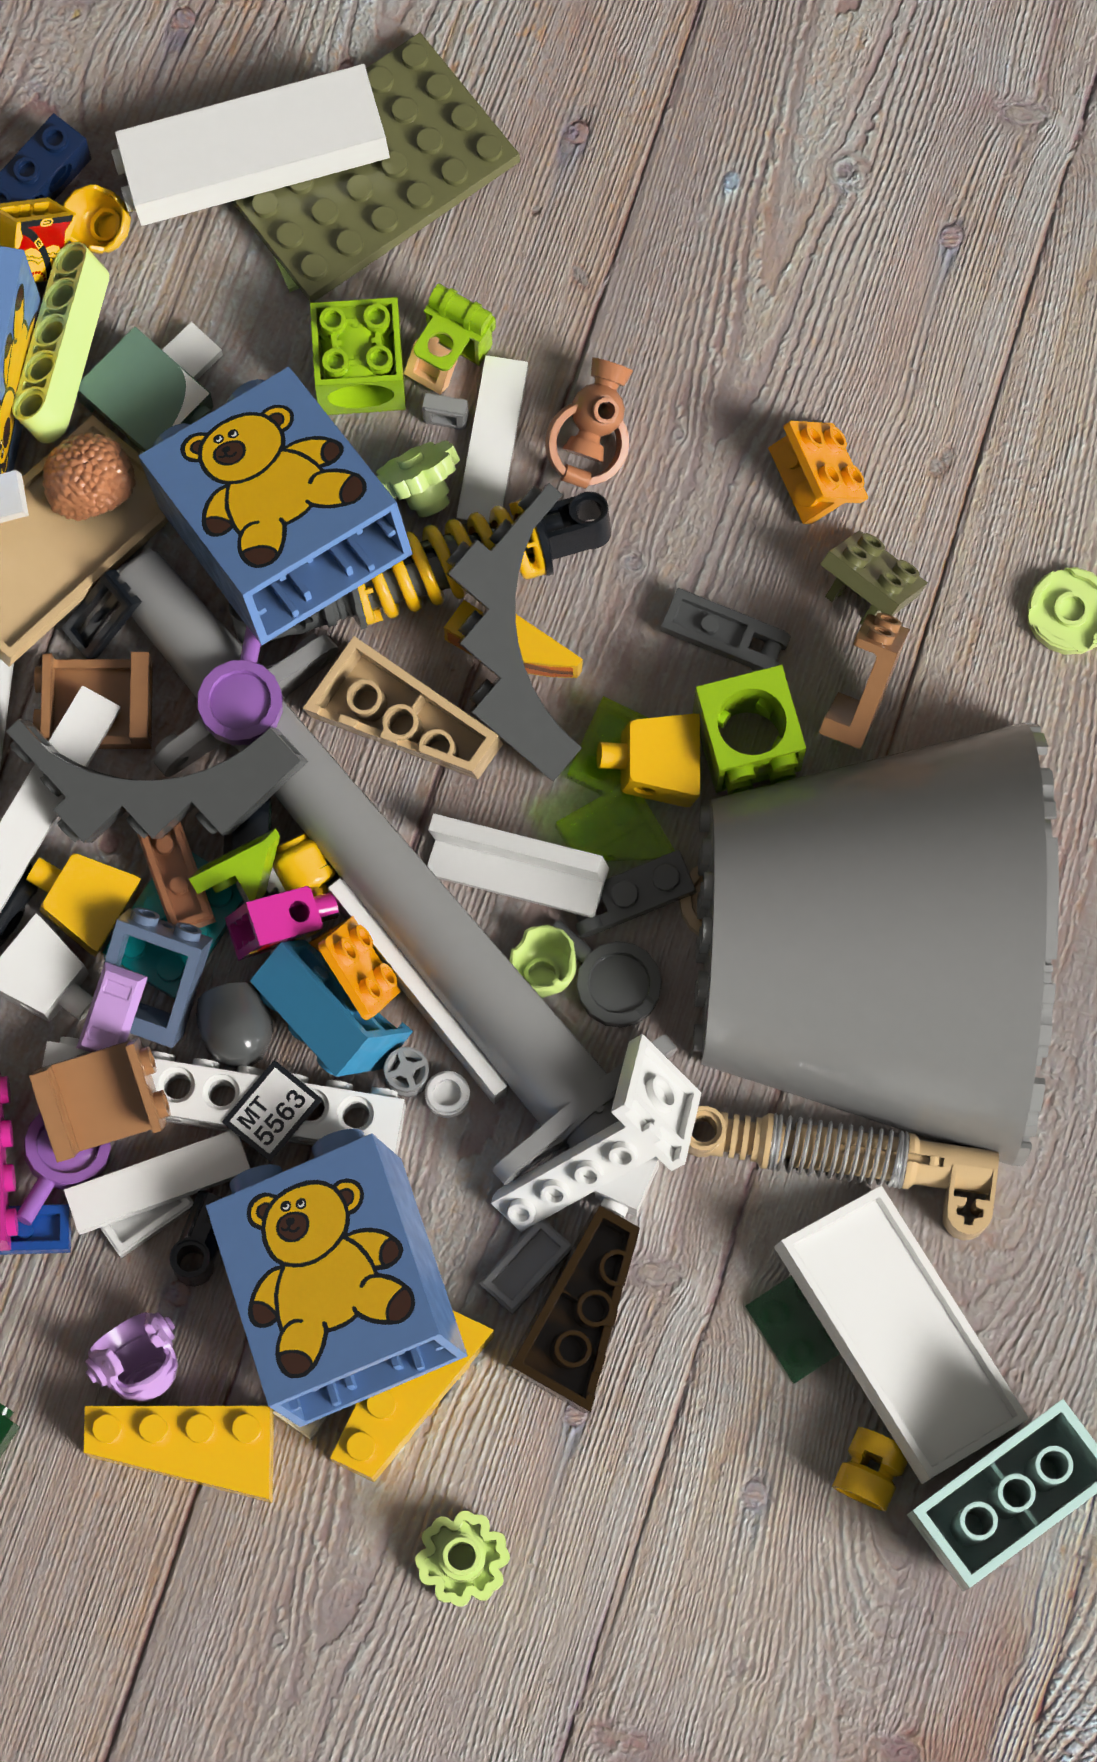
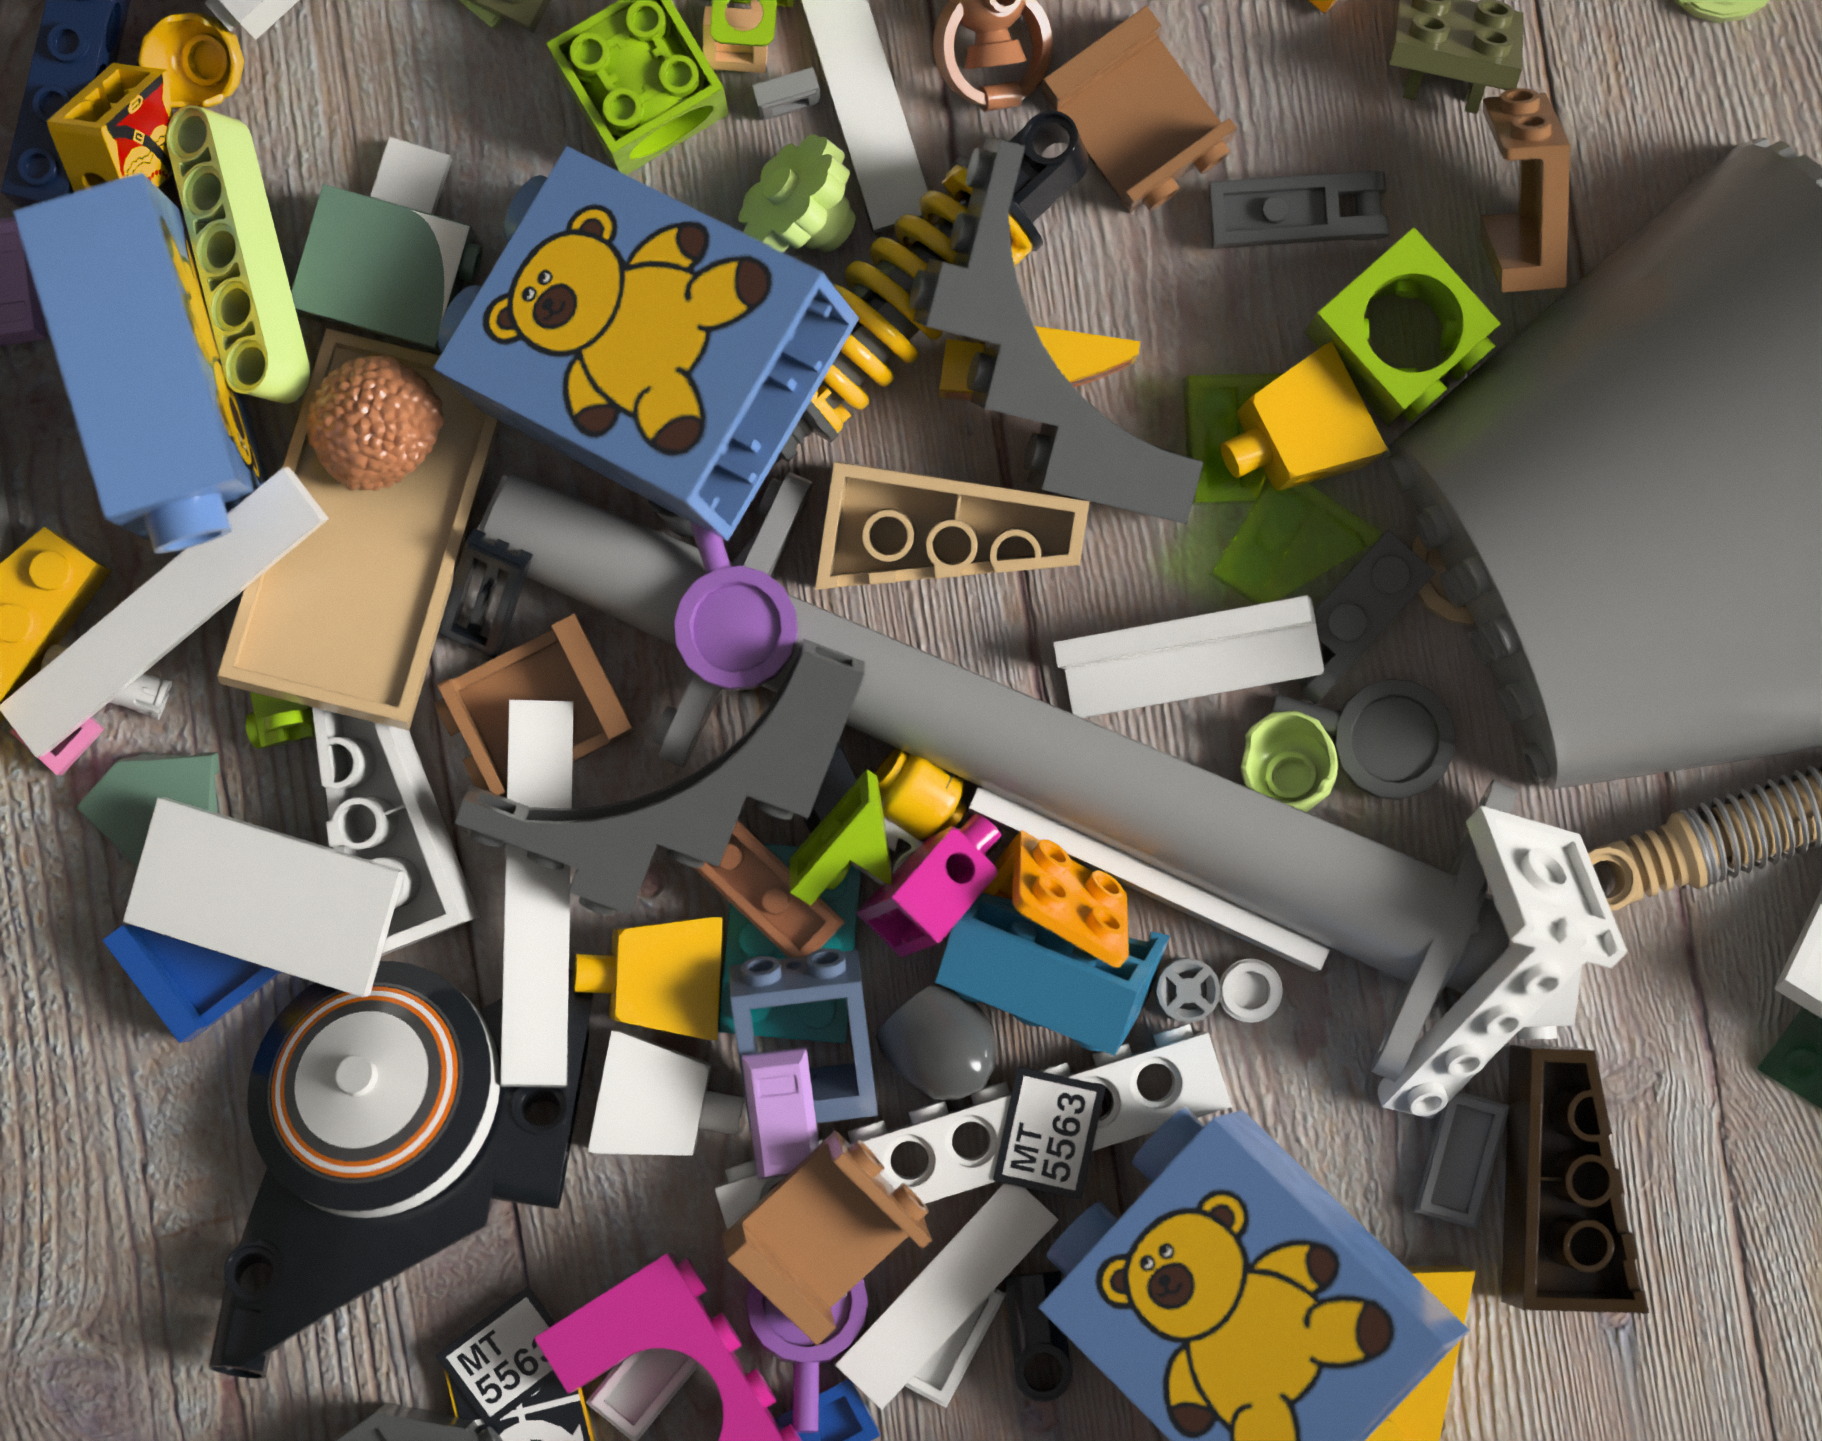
camera: 30 degrees left, 10 degrees up
(655, 525) = (1138, 113): none -> medium nougat panel

